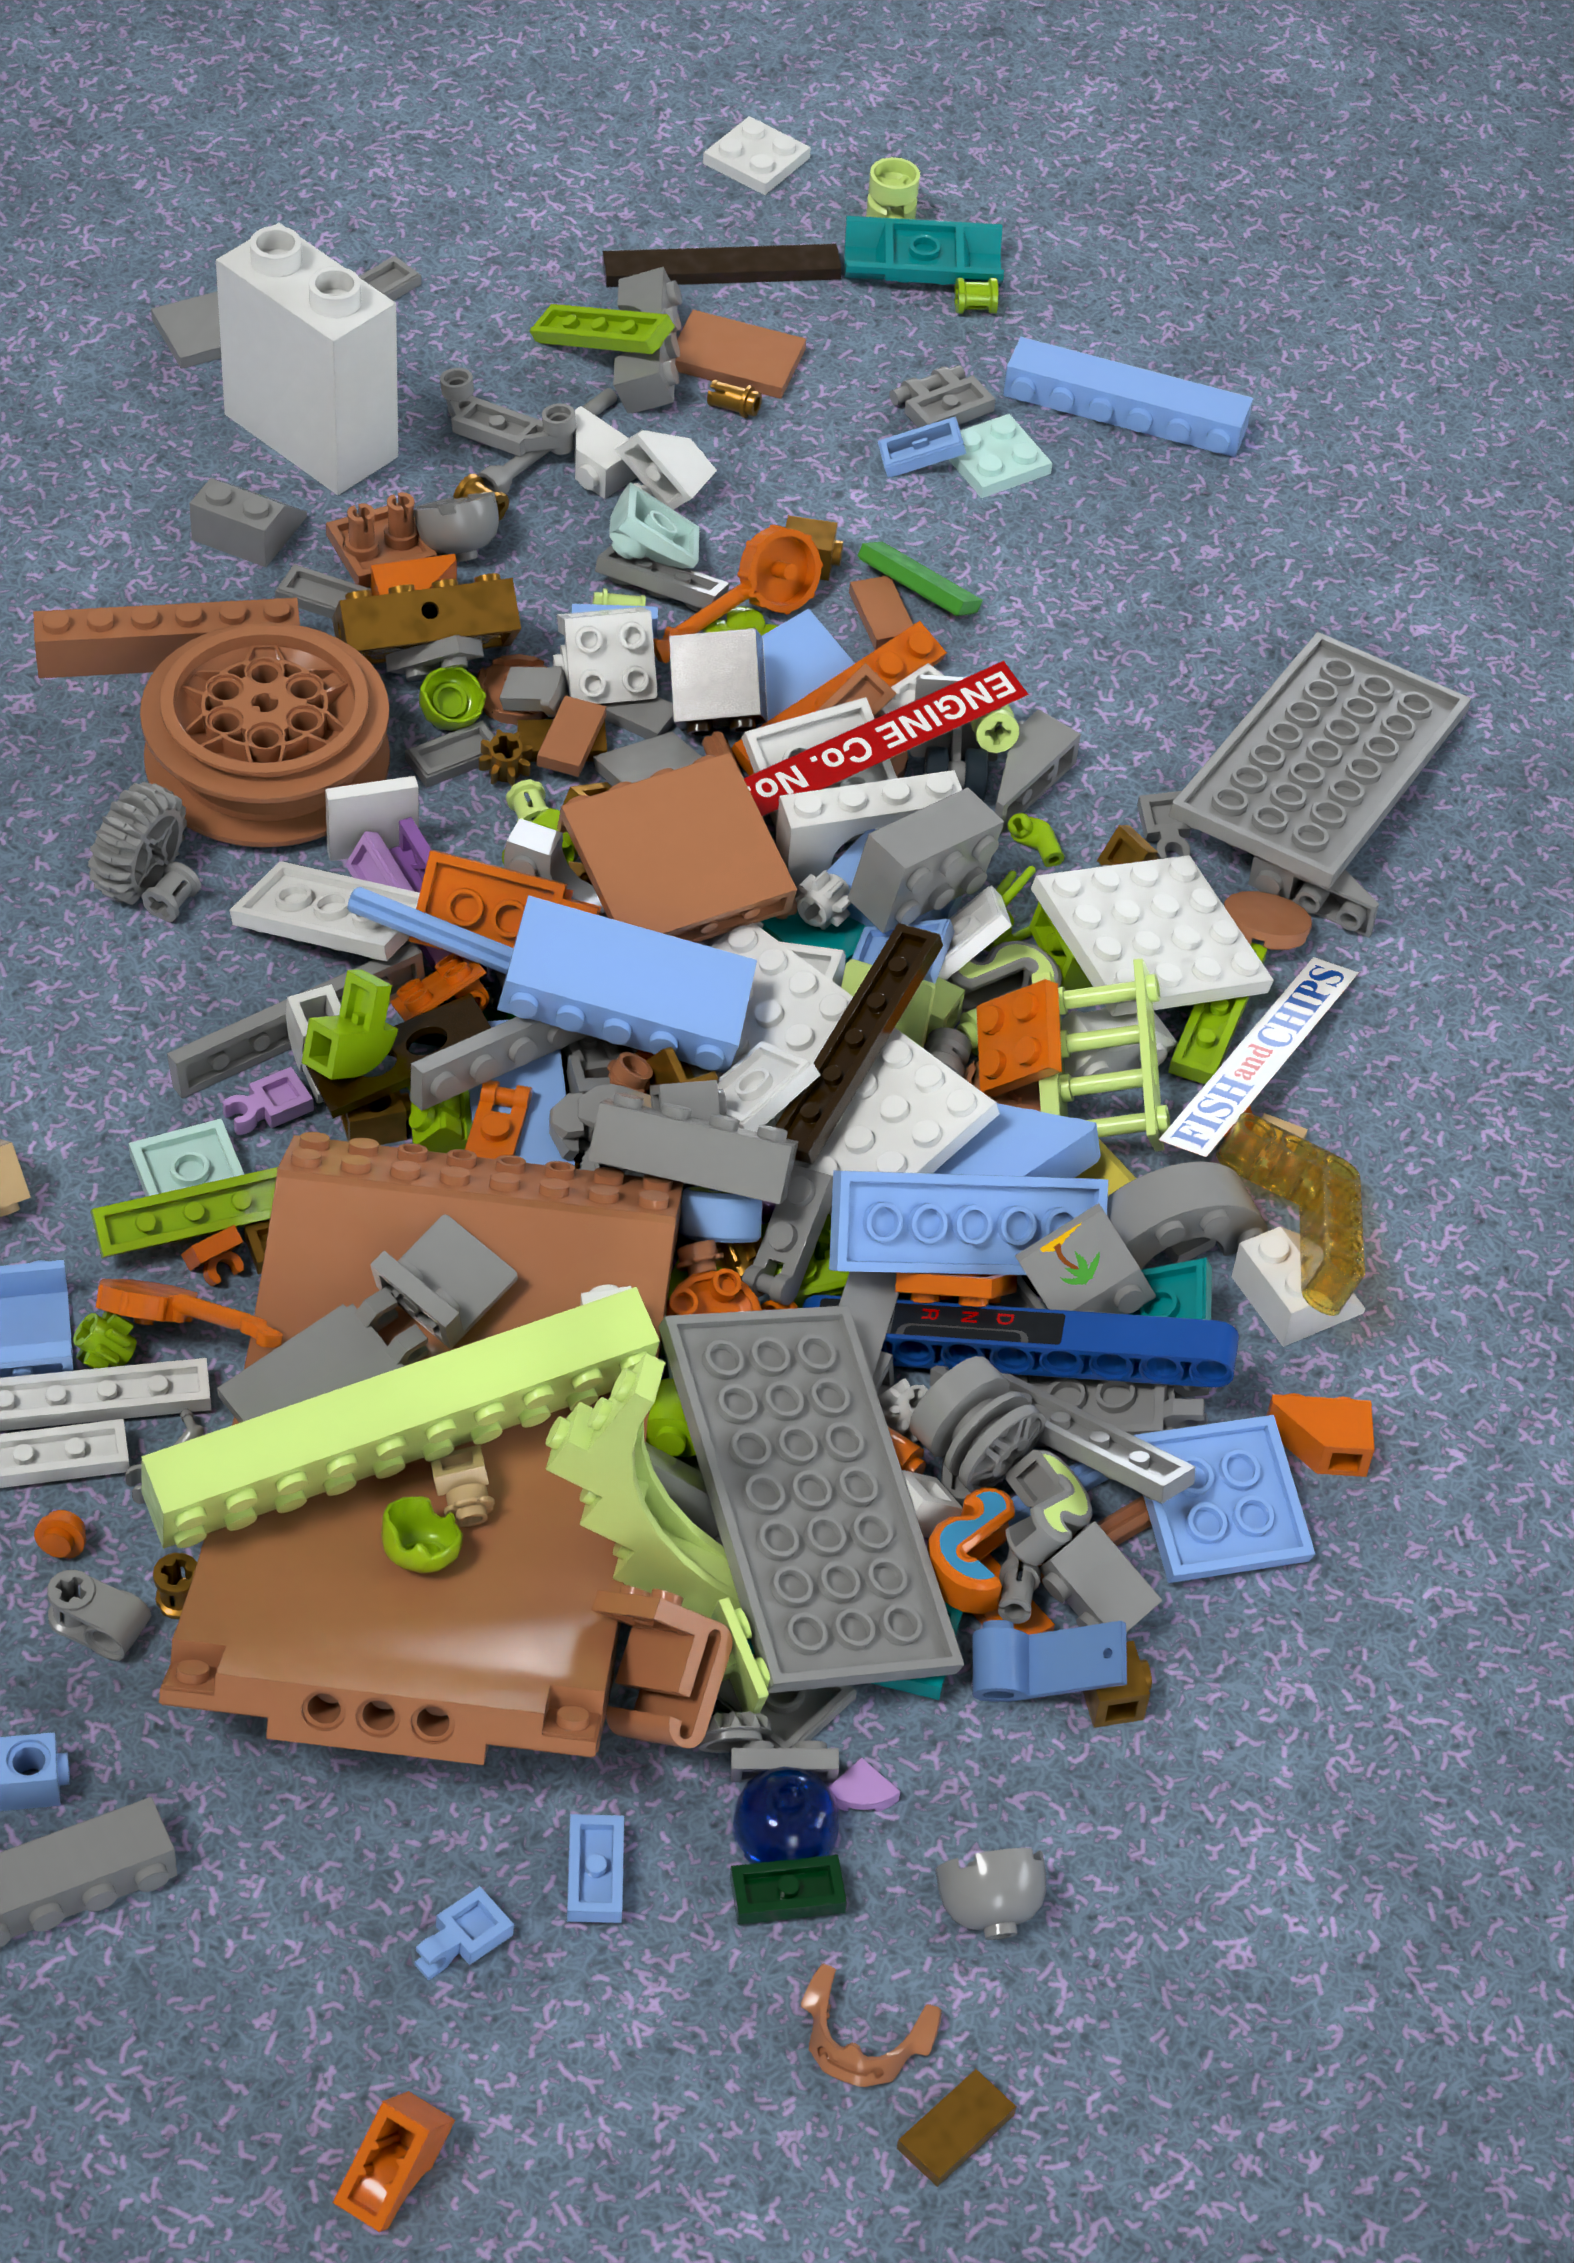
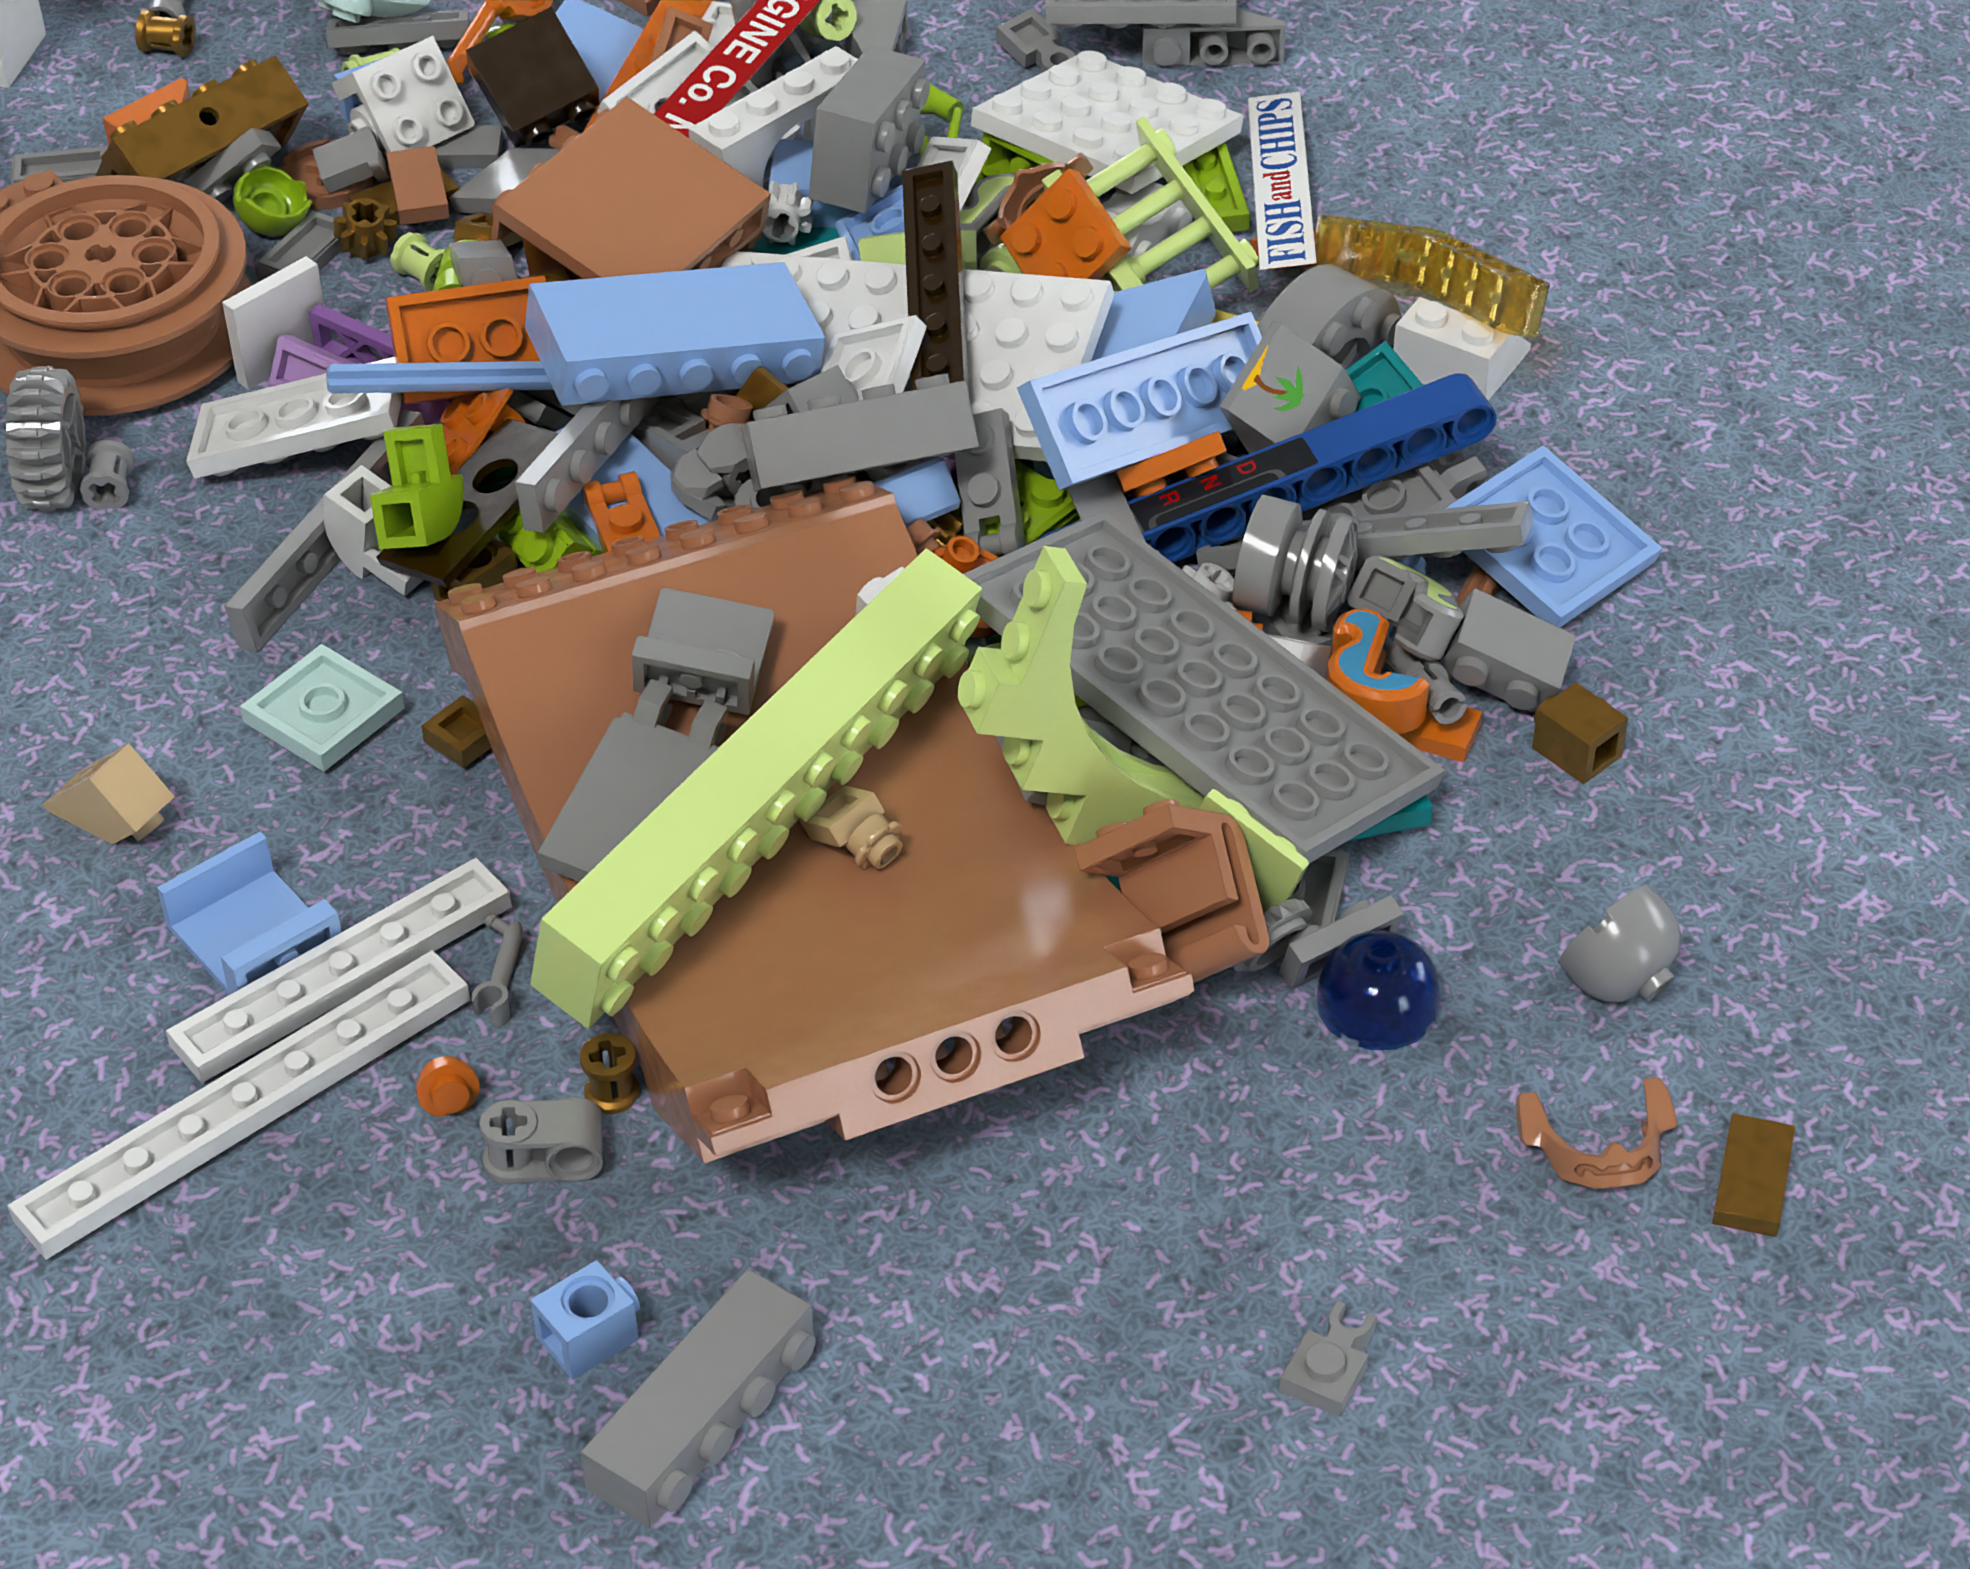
camera: 25 degrees left, 5 degrees down
(104, 1340) = (356, 887): lime gear -> none
(168, 1303) = (423, 814): orange piece -> none
(184, 1213) = (362, 732): lime plate -> none
(214, 1250) = (406, 765): orange tile -> none
(272, 1098) = (358, 606): lavender plate -> none
(377, 537) = (84, 96): nougat plate -> none
(393, 2158) = (1258, 1481): orange arch -> none
(419, 1537) = (855, 892): lime hair -> none
(458, 524) = (163, 54): light grey cylinder -> none
(466, 1928) = (1154, 1236): light blue plate -> none
(519, 2101) = (1330, 1366): none -> light grey plate
(595, 1868) = (1234, 1121): light blue plate -> none
(788, 1889) = (1430, 1049): dark green plate -> none
(864, 1789) = (1430, 927): lavender tile -> none
(1021, 975) = (1025, 188): none -> nougat helmet
(1025, 1666) = (1515, 736): medium blue door -> none
(1126, 847) = (1019, 67): pearl gold tile -> none
(1269, 919) = (1197, 75): nougat tile -> none
(1325, 1432) = (1596, 443): orange slope -> none

